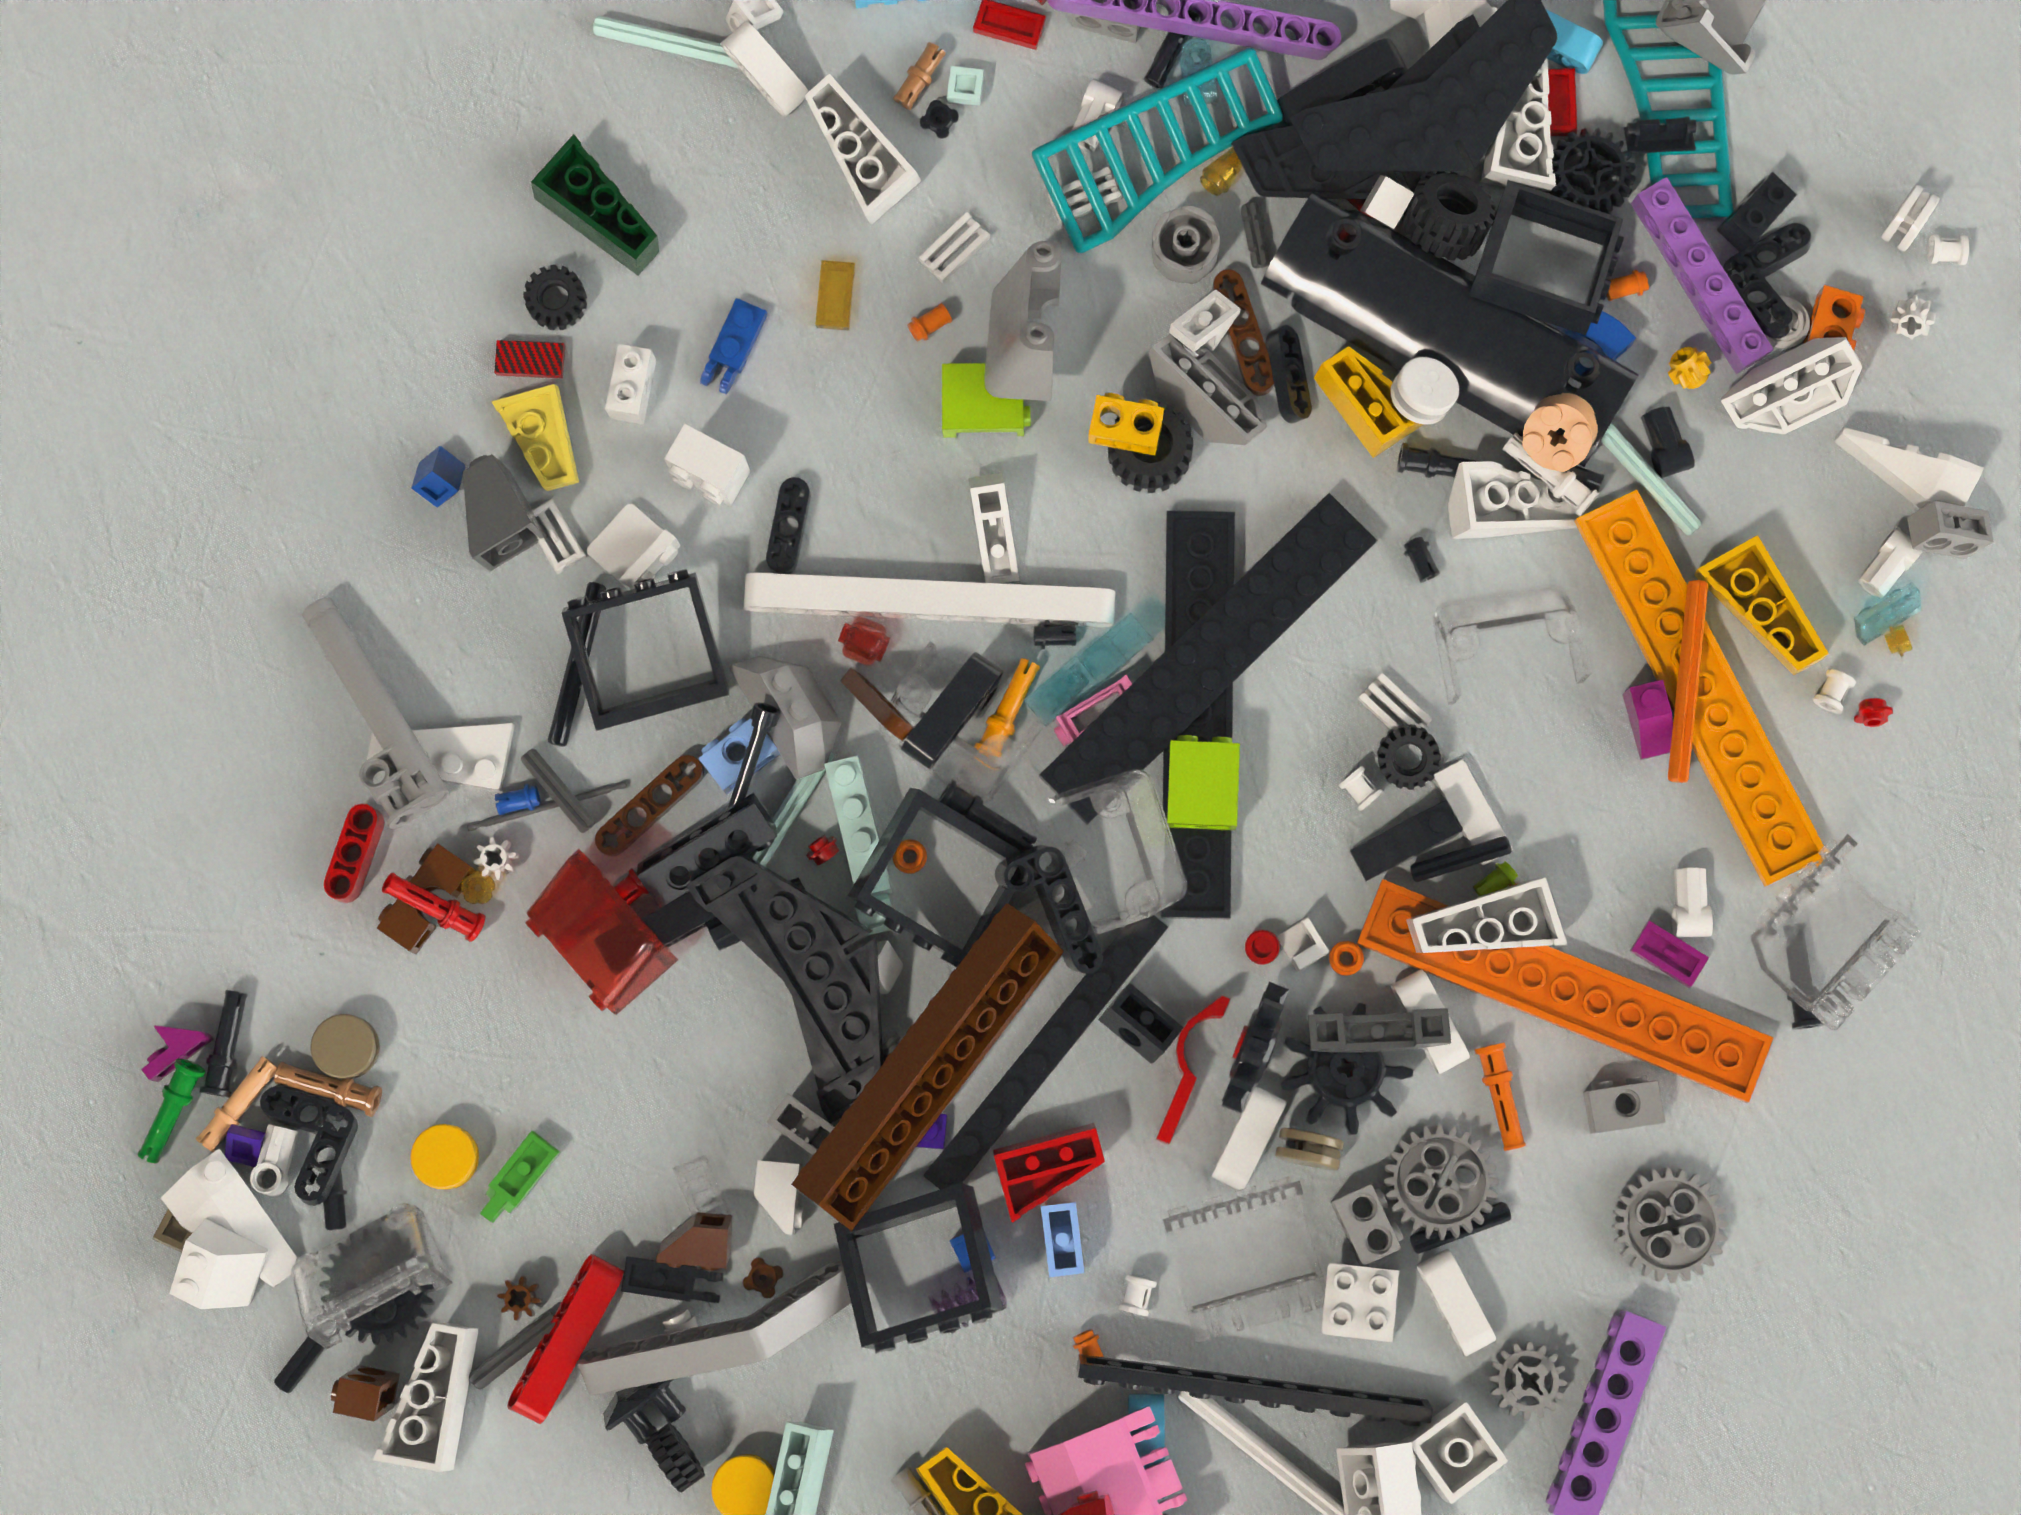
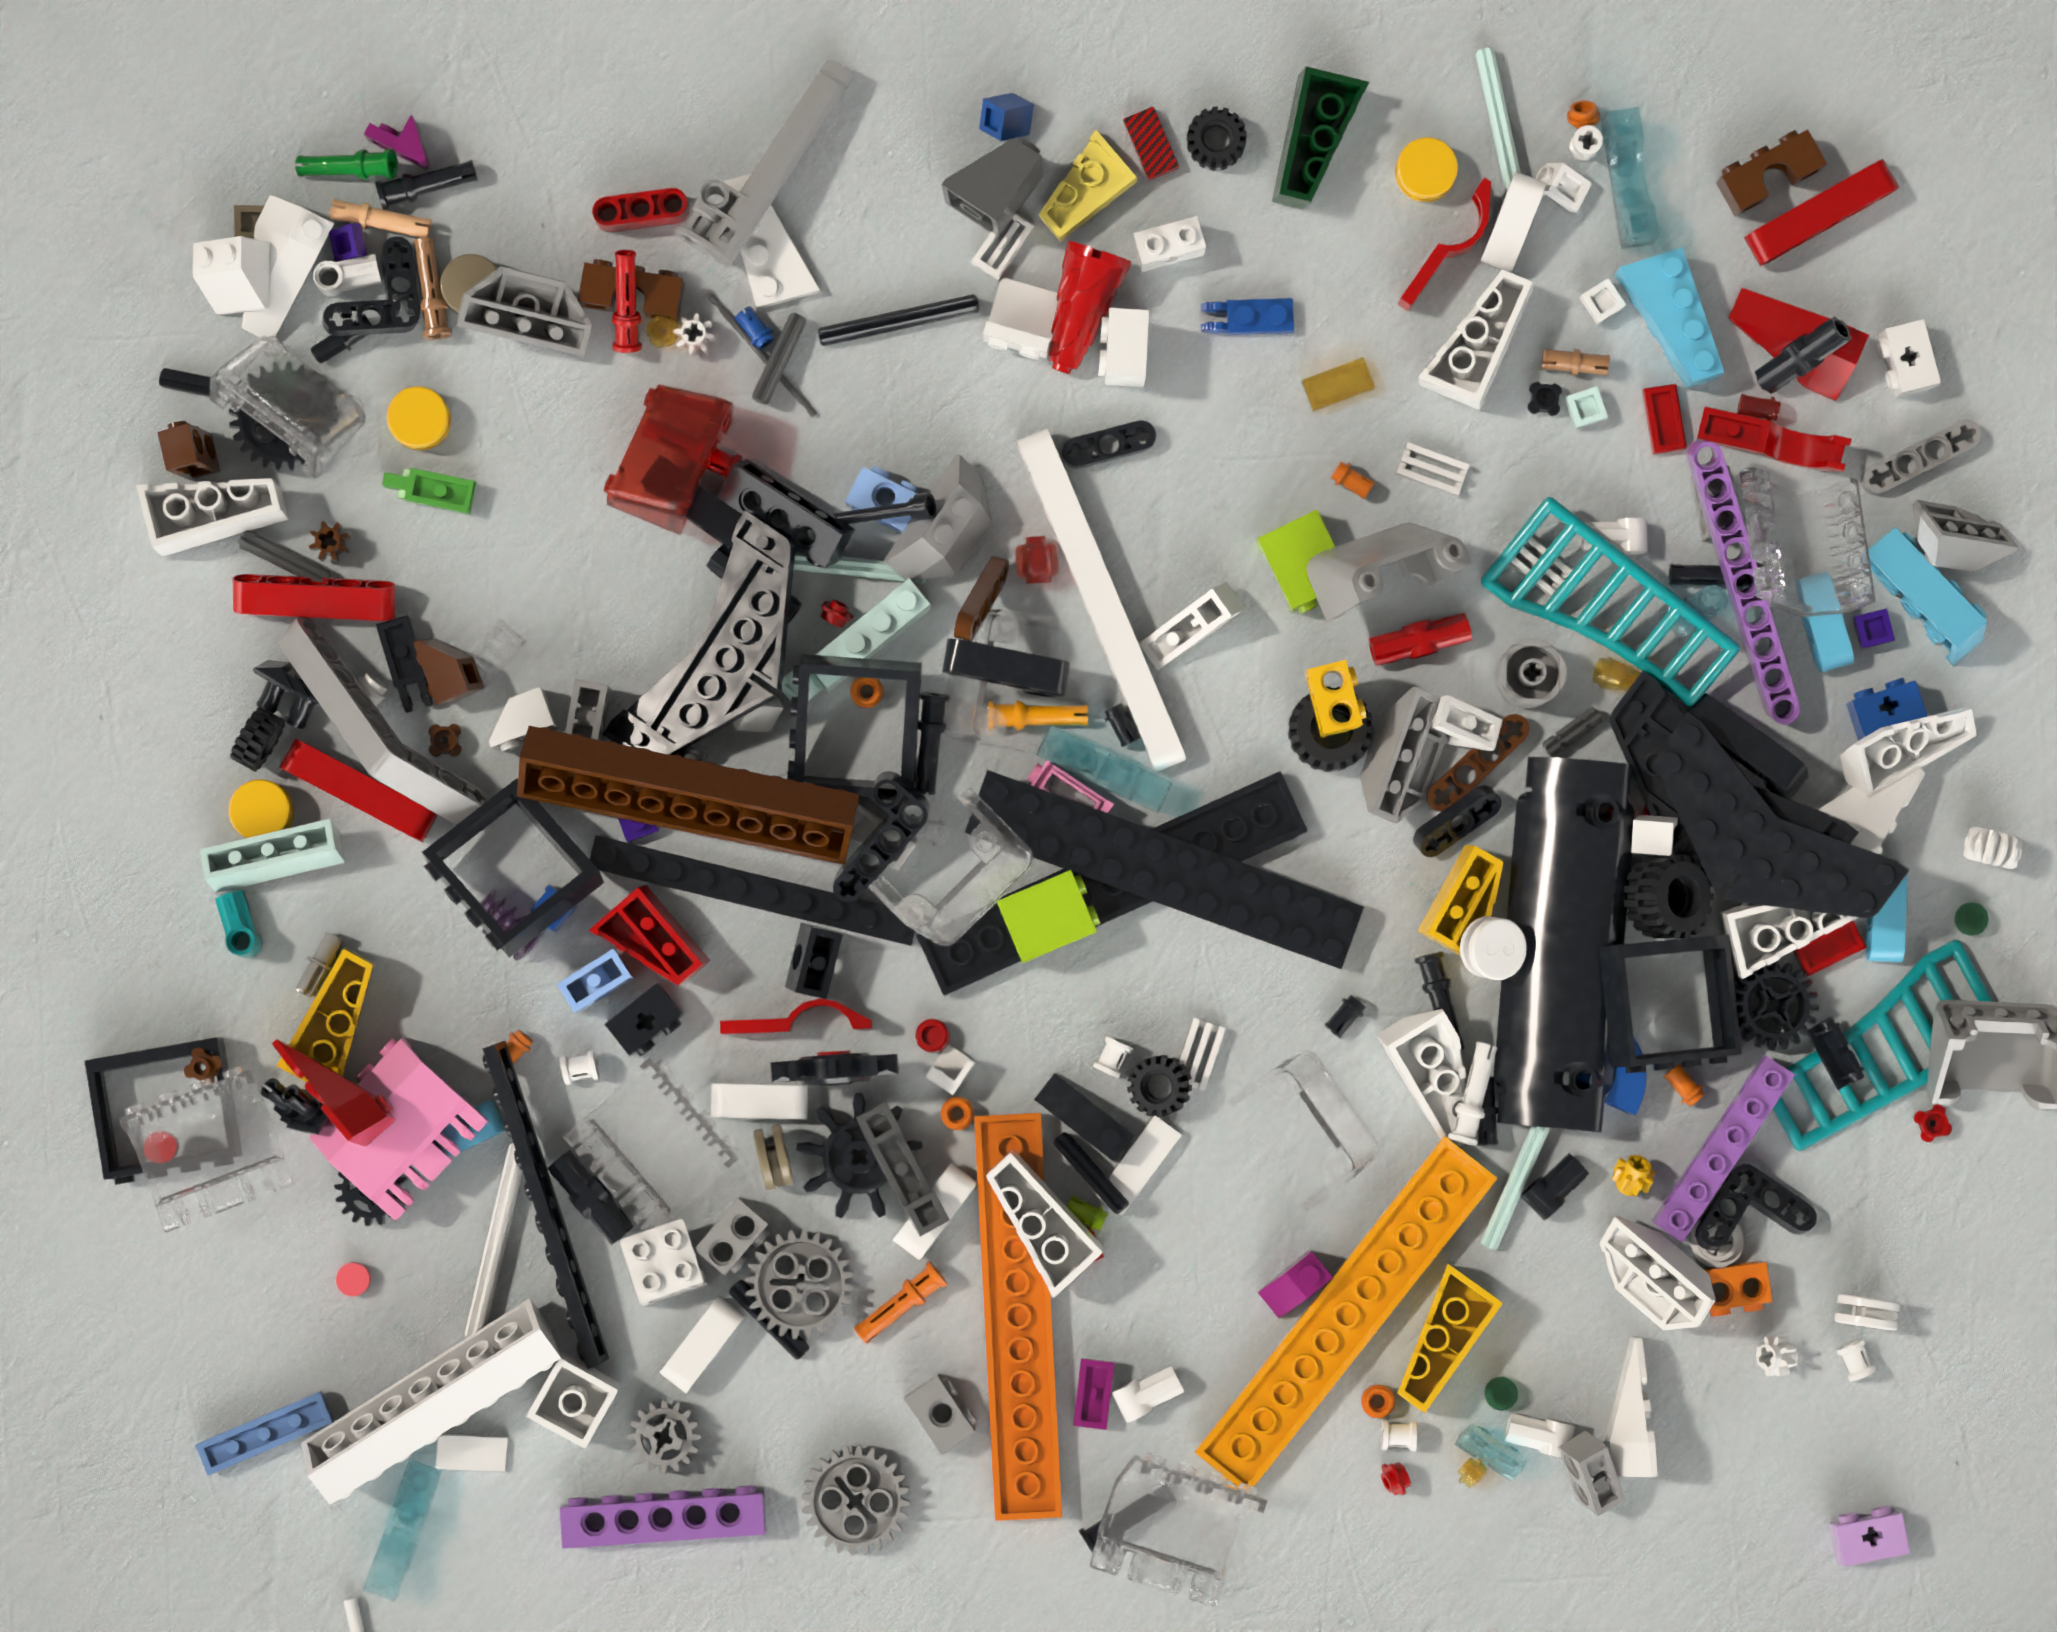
camera: 55 degrees right, 5 degrees up
(394, 1002) = (526, 310): none -> light grey wedge
(643, 484) = (1083, 298): none -> red cone
(645, 801) = (805, 441): reddish brown beam -> none
(655, 704) = (892, 403): black window -> none
(678, 125) = (1426, 169): none -> yellow head
(735, 90) = (1482, 201): none -> red piece
(771, 1383) = (358, 790): none -> red beam
(876, 26) = (1602, 301): none -> white plate
(1105, 329) = (1420, 639): none -> red piece
(1108, 1194) = (626, 1023): none -> black brick
(1266, 1343) = (590, 1197): none -> black piece
(1557, 450) = (1511, 1085): light nougat brick -> none
(1687, 681) = (1343, 1300): orange axle -> none
(1756, 212) = (1807, 1171): black brick -> none
(1765, 76) = (1942, 1125): none -> red plate
(1800, 689) = (1385, 1409): none -> orange plate
(1836, 581) = (1501, 1393): none -> clear green plate

